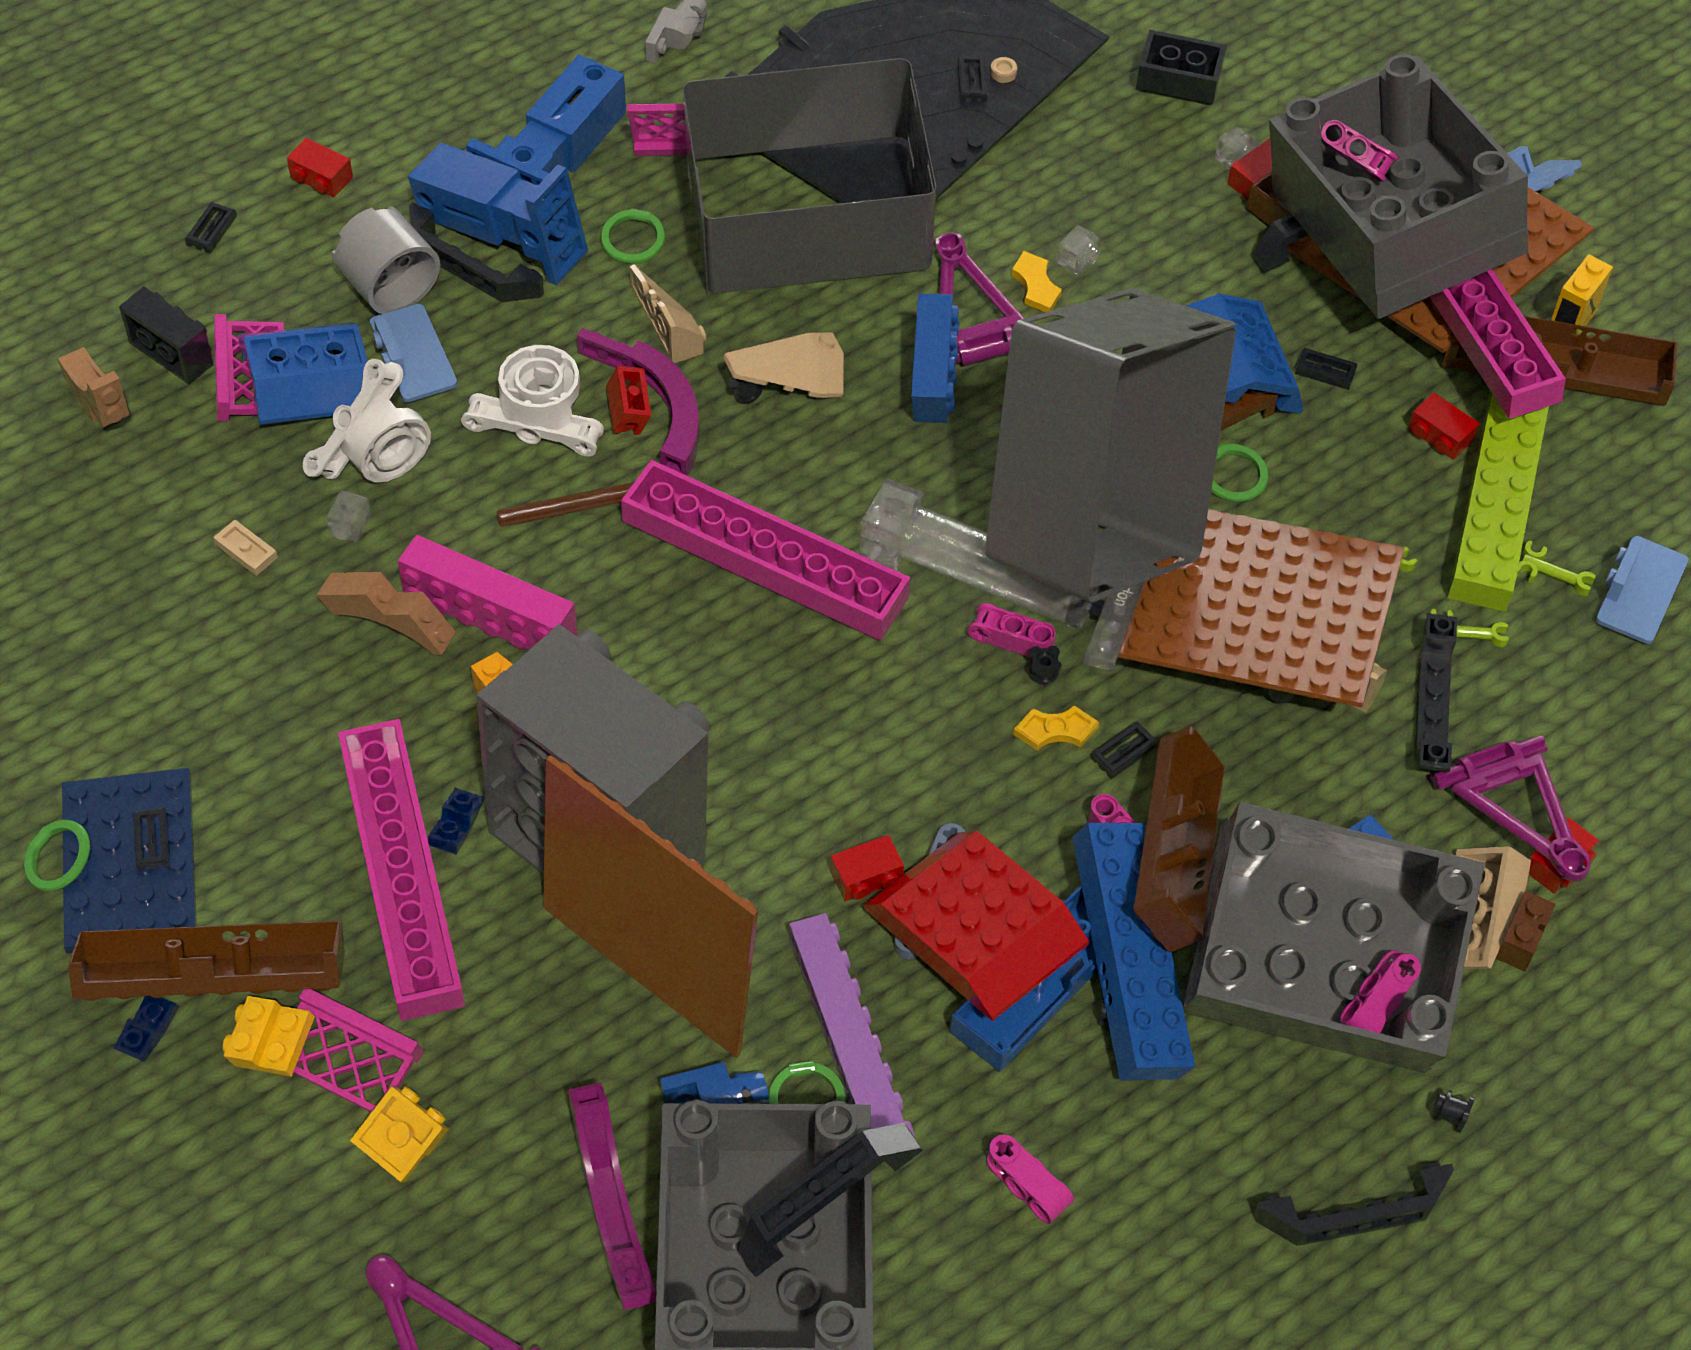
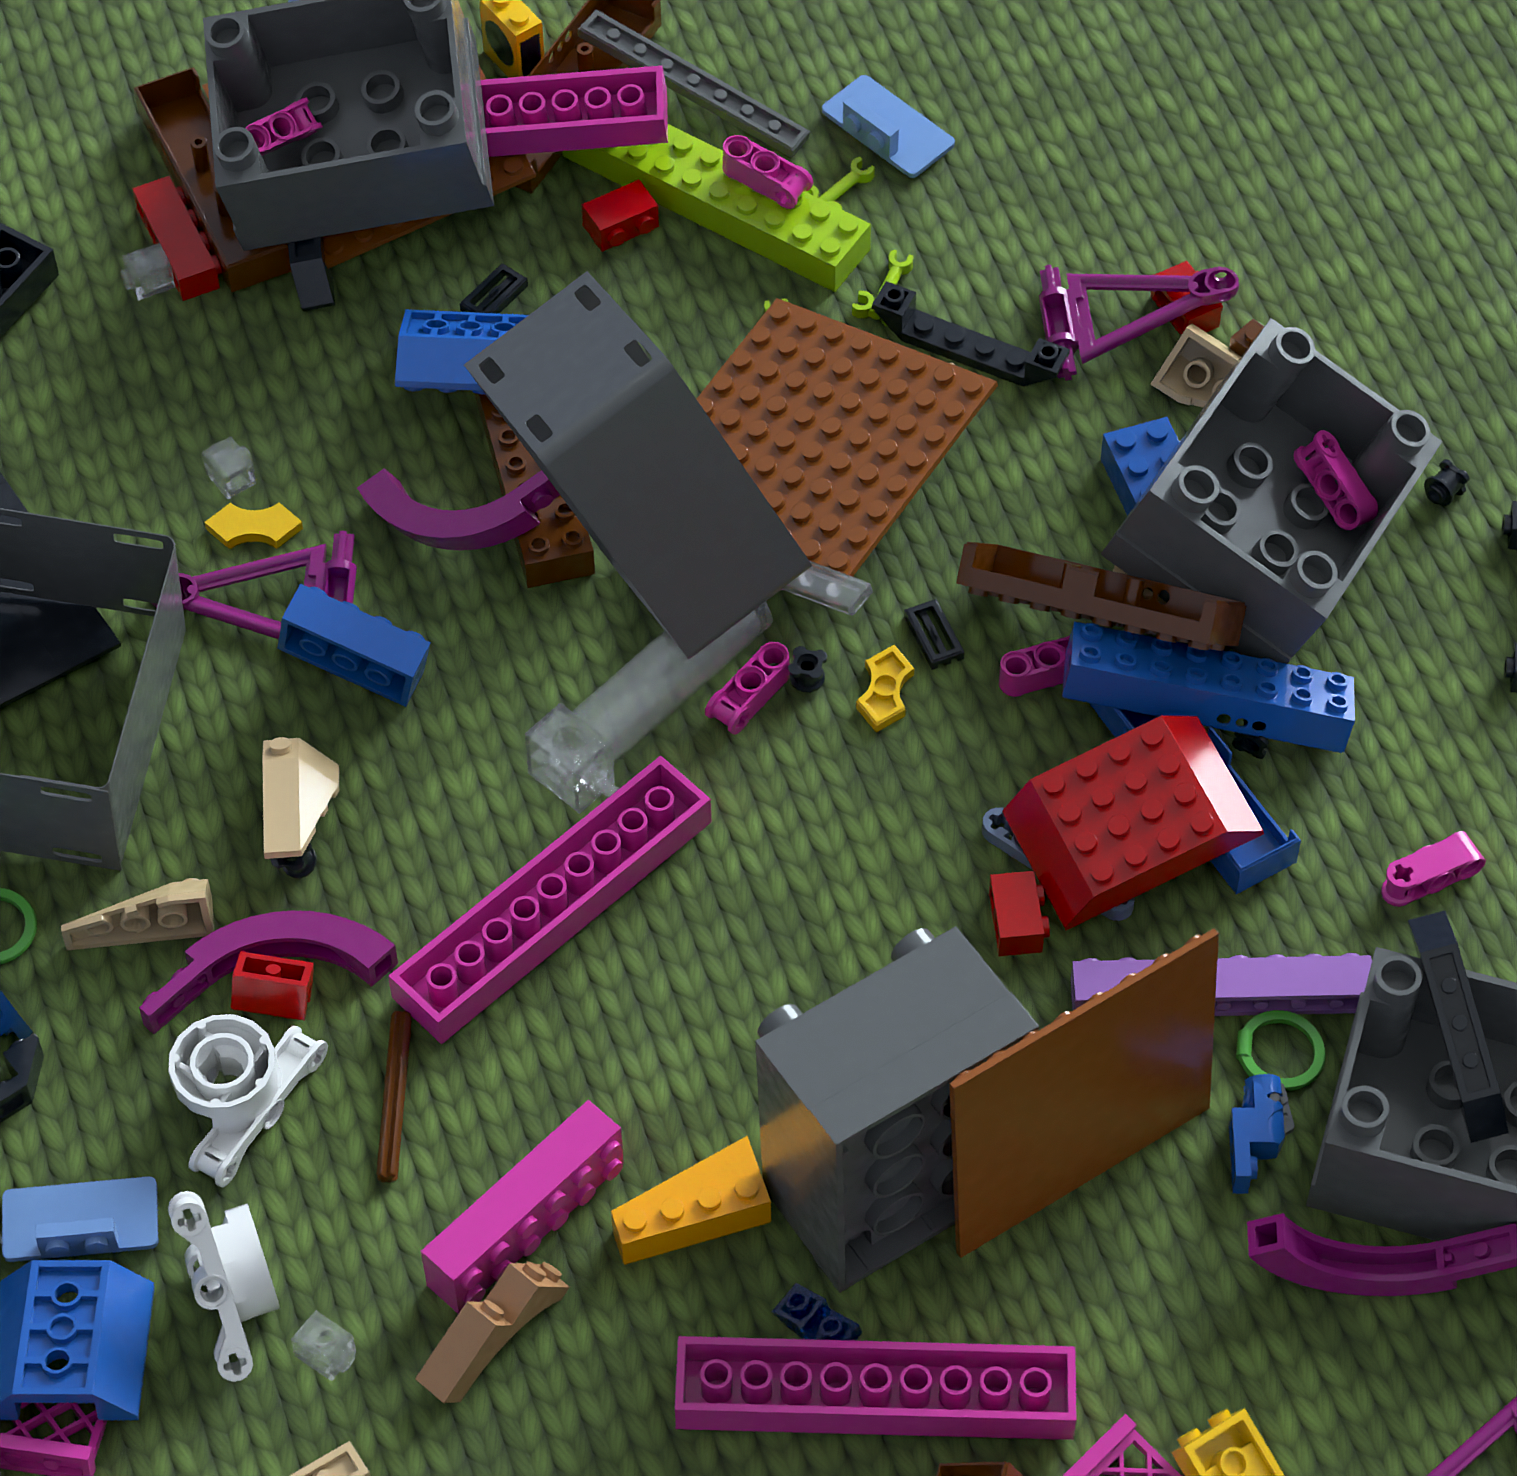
camera: 70 degrees left, 0 degrees up
(1518, 494) = (764, 171): none -> dark pink piece
(1606, 439) = (695, 84): none -> dark grey tile

